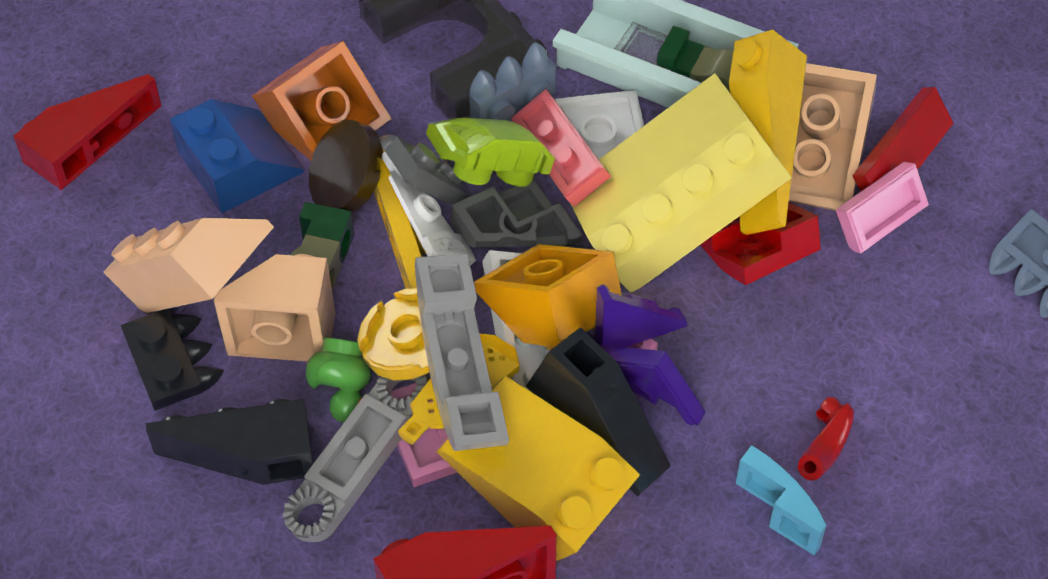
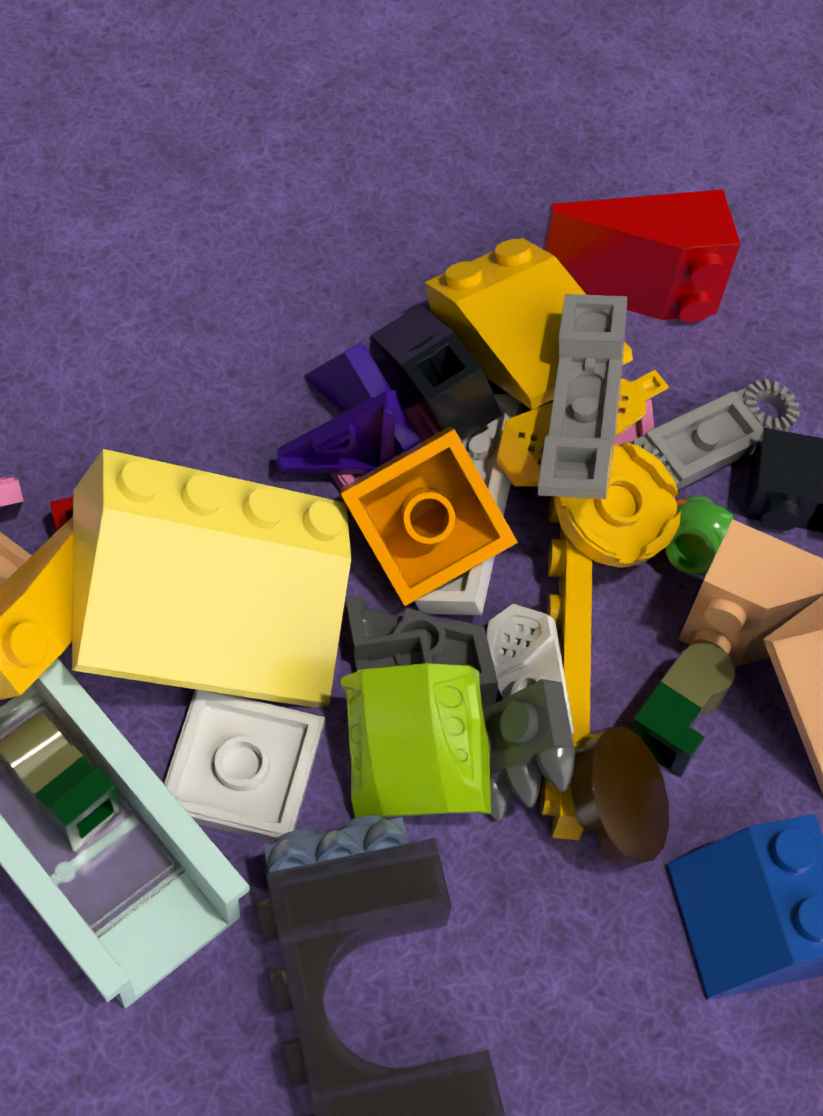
camera: 165 degrees left, 5 degrees up
(319, 94) = (623, 949): orange slope -> none
(575, 166) = (314, 728): coral tile -> none
(793, 510) = (286, 245): medium azure slope -> none
(830, 441) = (205, 287): red arm -> none

